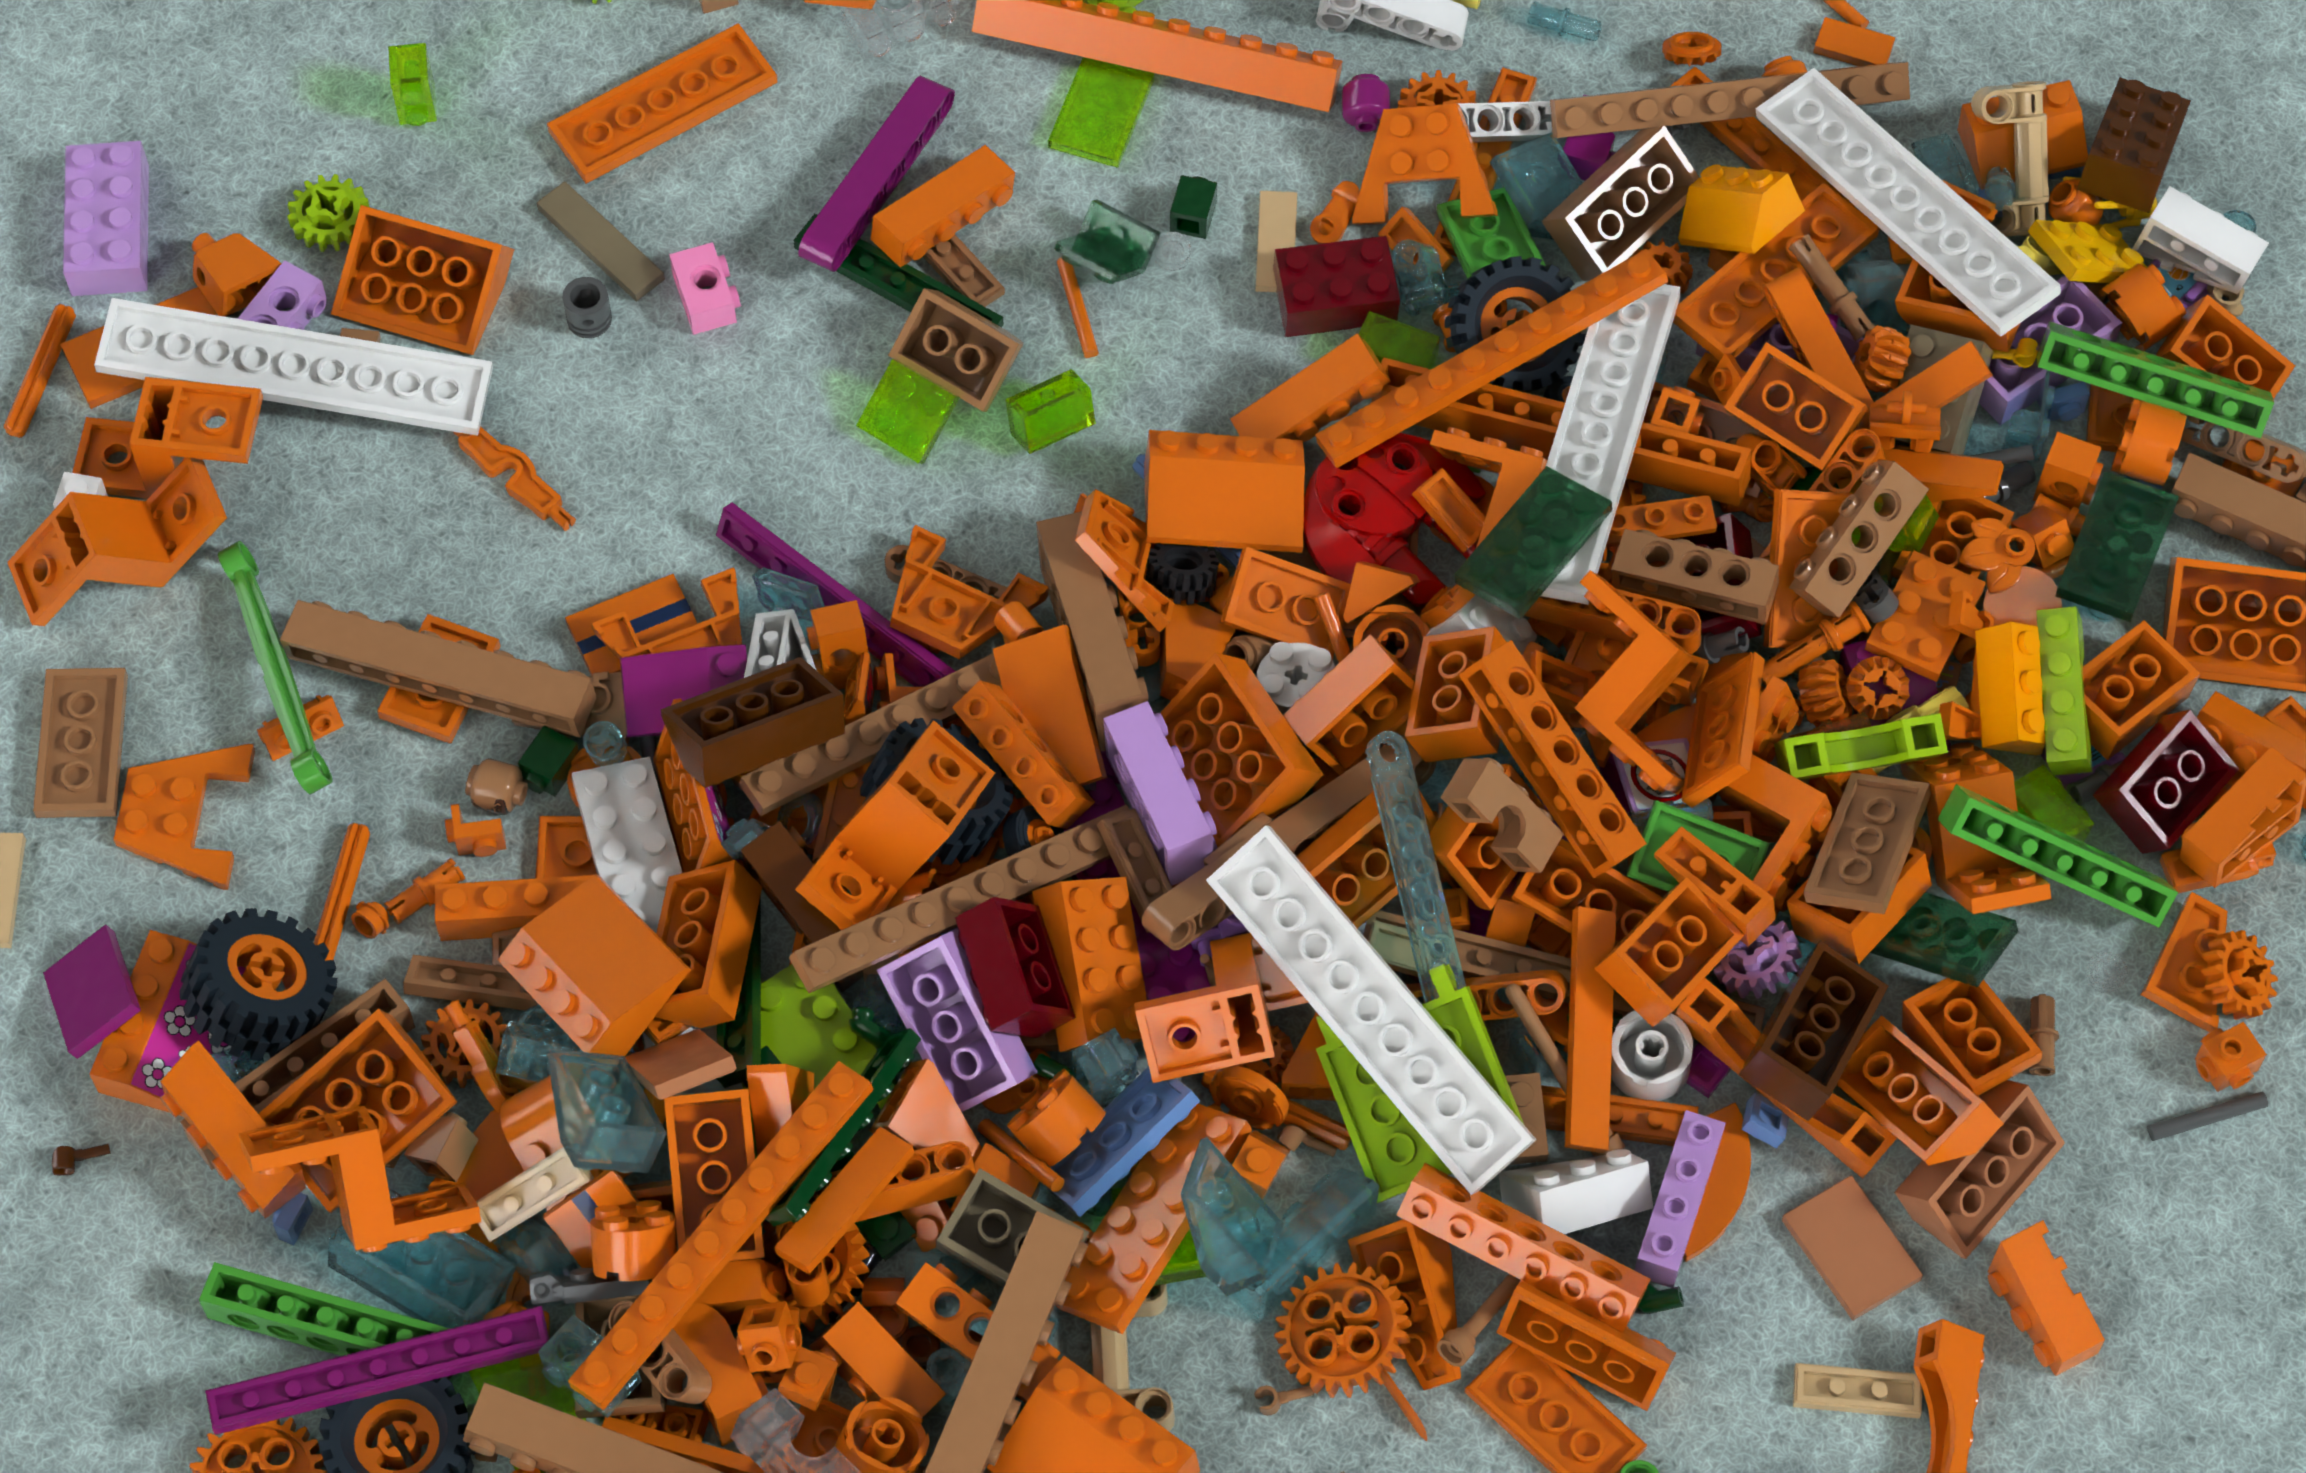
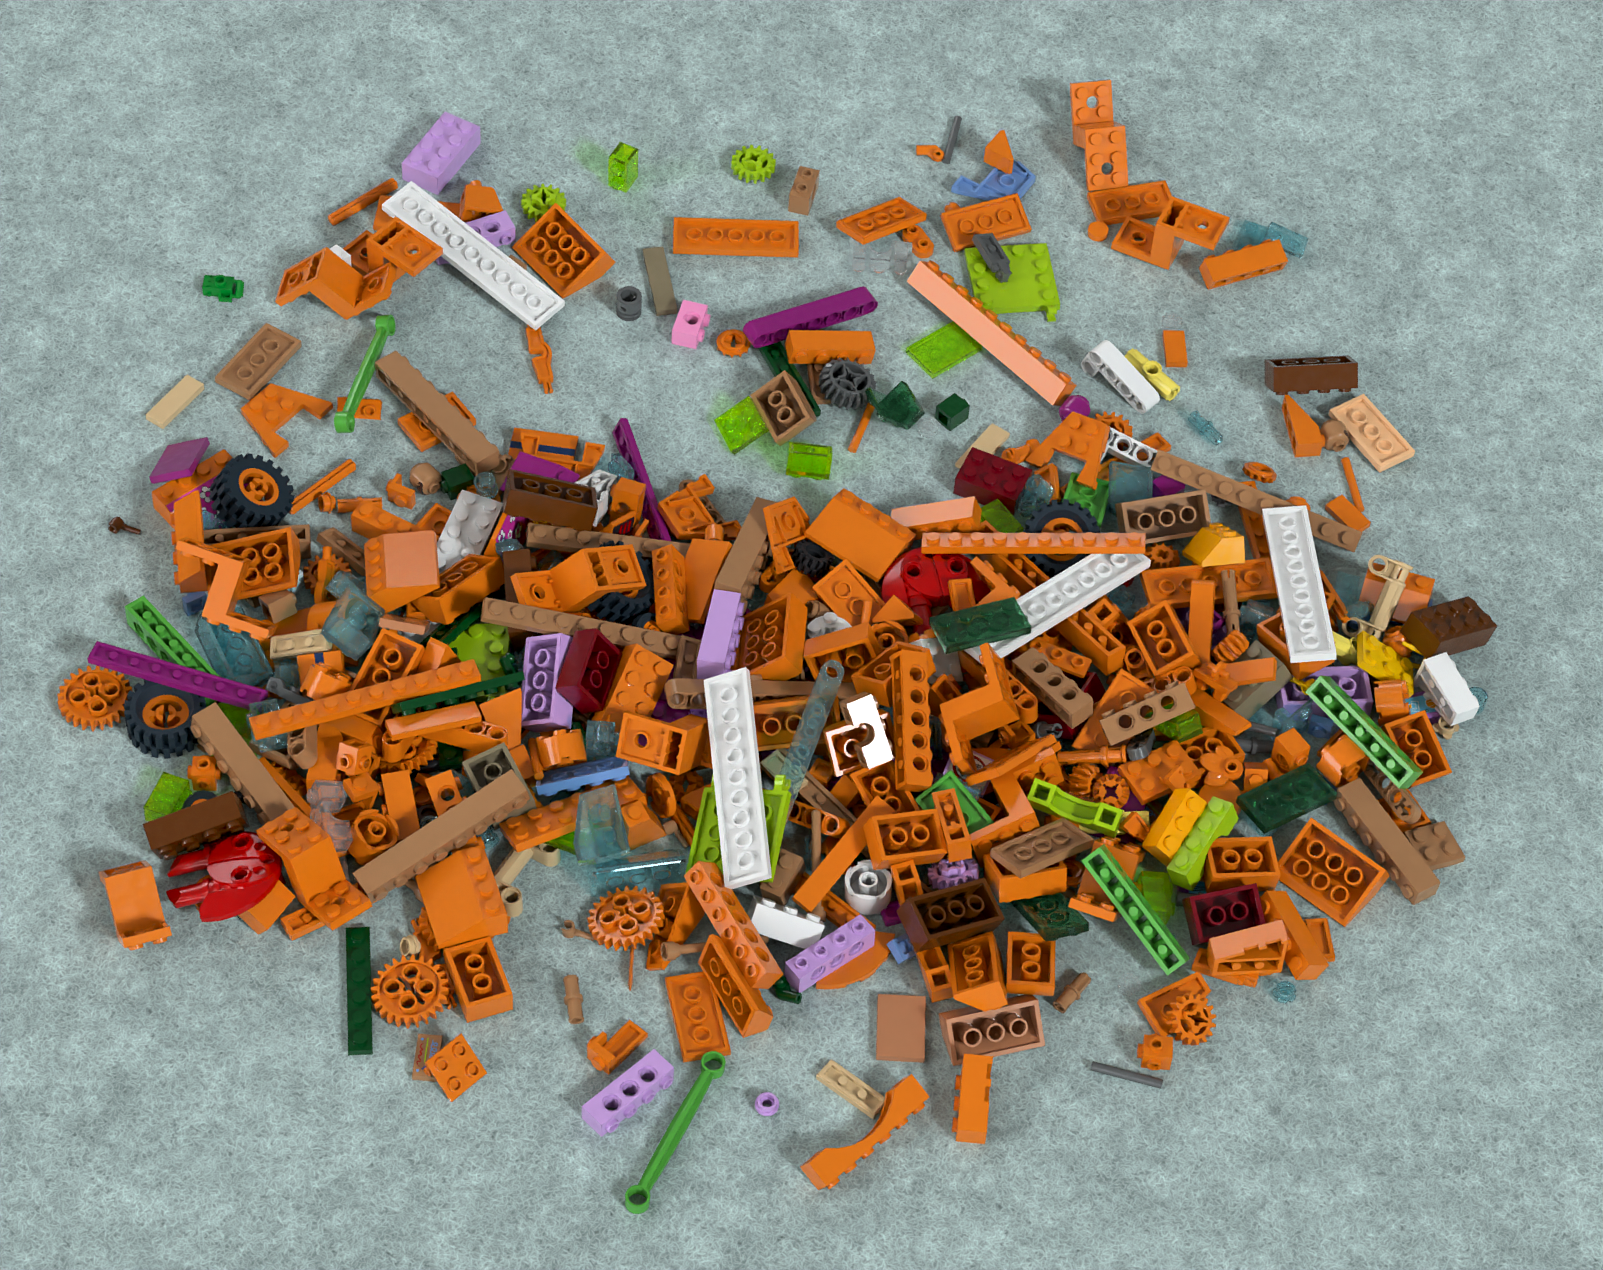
camera: 30 degrees right, 10 degrees down
(795, 269) = (726, 338): none -> orange gear
(1010, 251) = (845, 387): none -> dark grey gear

